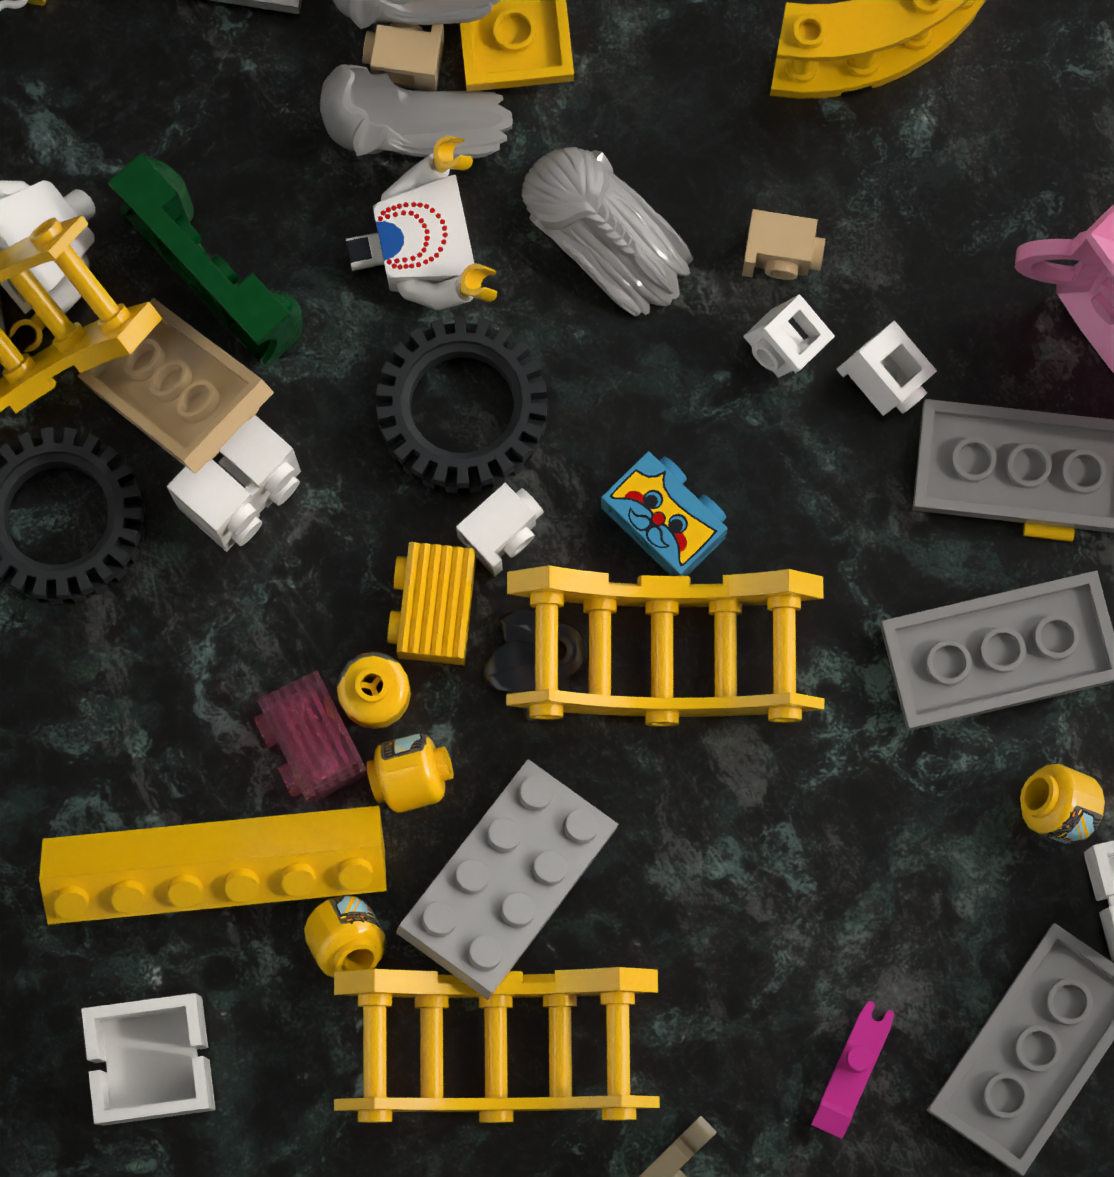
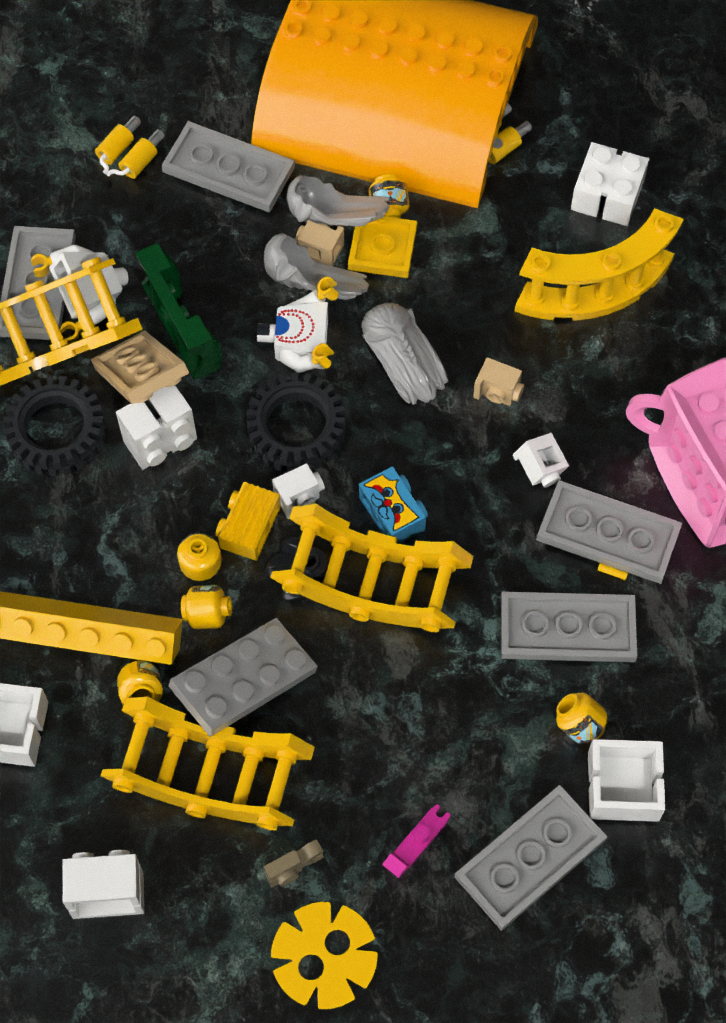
camera: 15 degrees right, 15 degrees down
(311, 738) = (156, 575): clear pink brick -> none
(779, 345) = (481, 431): white brick -> none

